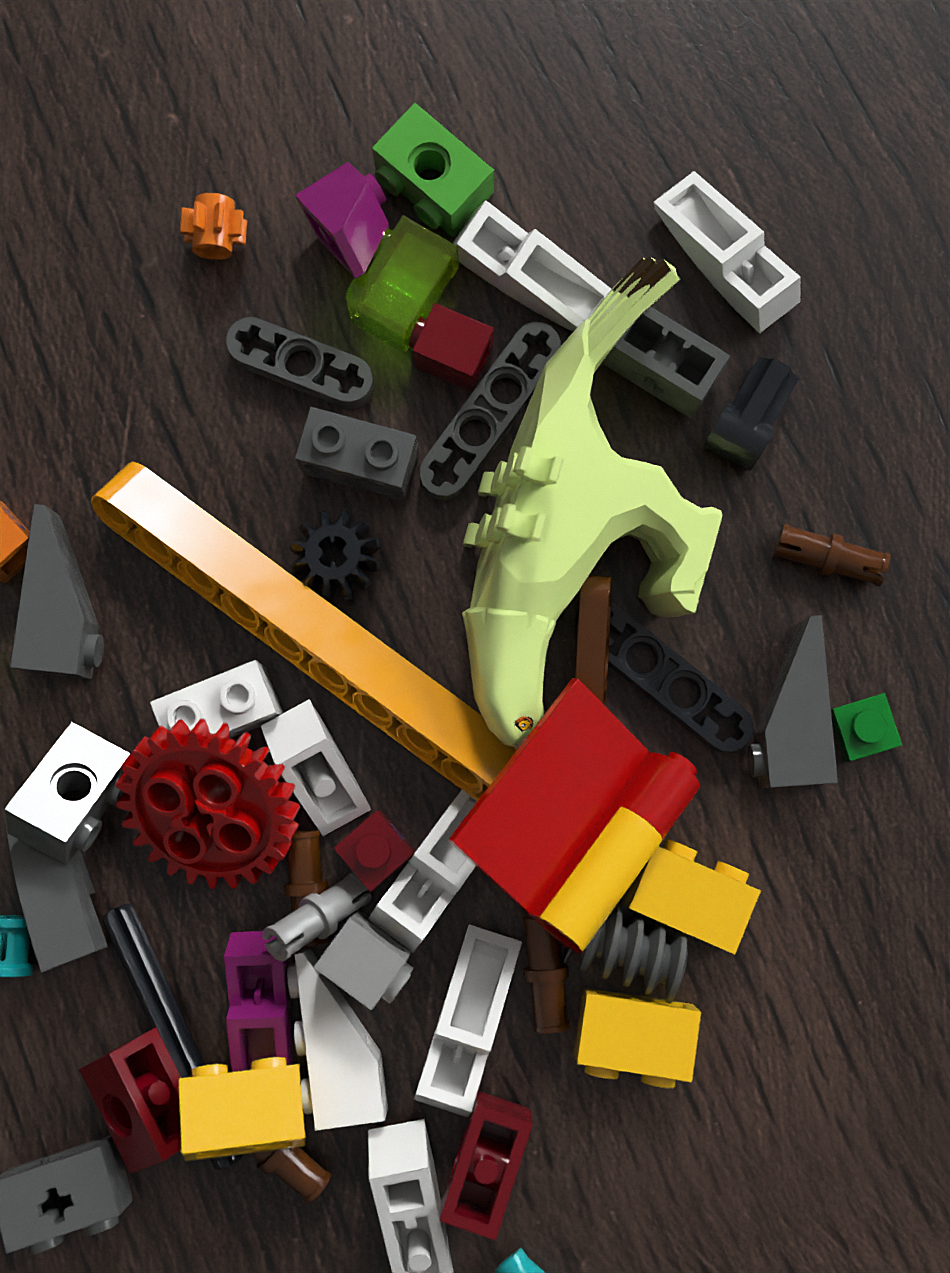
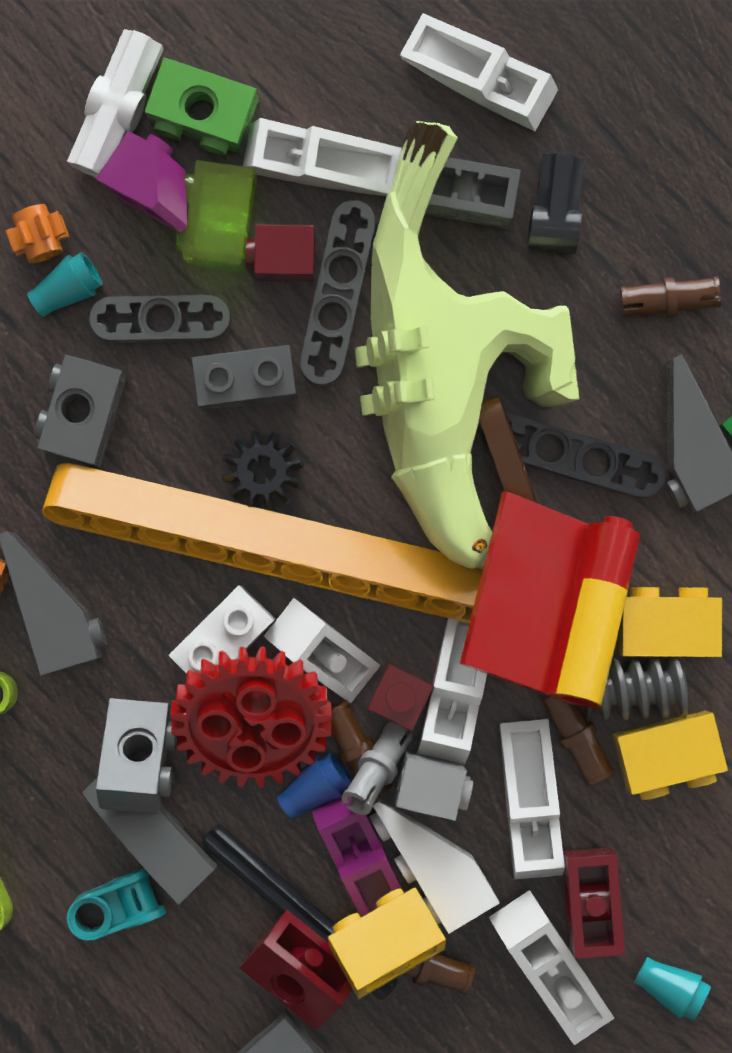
camera: 25 degrees left, 5 degrees up
(178, 448) = (89, 438): none -> dark grey brick
(220, 289) = (66, 284): none -> teal cone
(246, 908) = (315, 786): none -> blue cone
(349, 130) = (115, 101): none -> white piece

